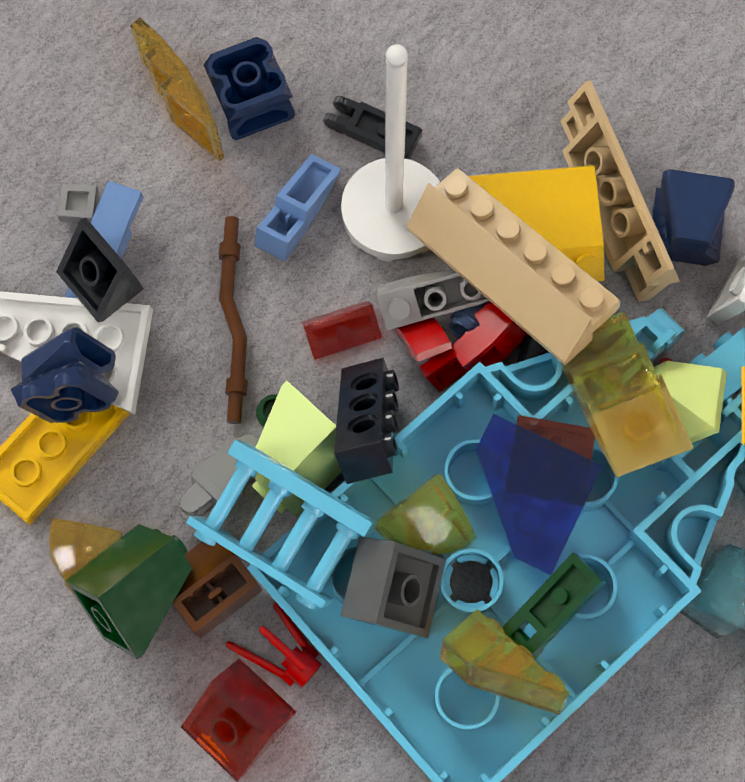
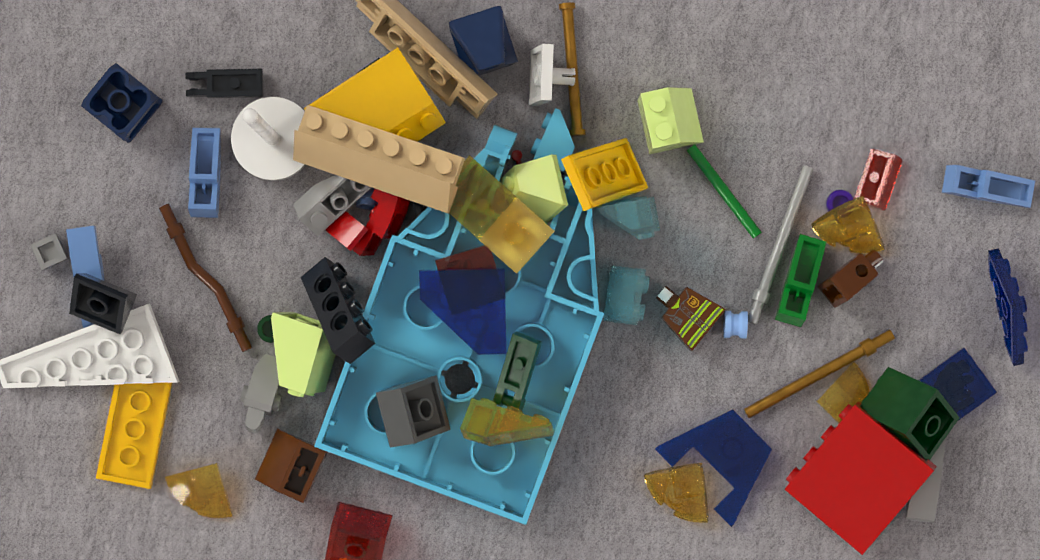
camera: 30 degrees left, 15 degrees up
(66, 378) = (125, 385): dark blue piece -> none
(132, 587) = (246, 494): dark green slope -> none
(178, 88) = (78, 137): clear yellow slope -> none
(299, 664) = (378, 485): red plant -> none
(316, 504) = (337, 386): medium azure fence -> none
(341, 329) = (283, 245): clear red slope -> none
(428, 520) = (412, 356): clear yellow brick -> none

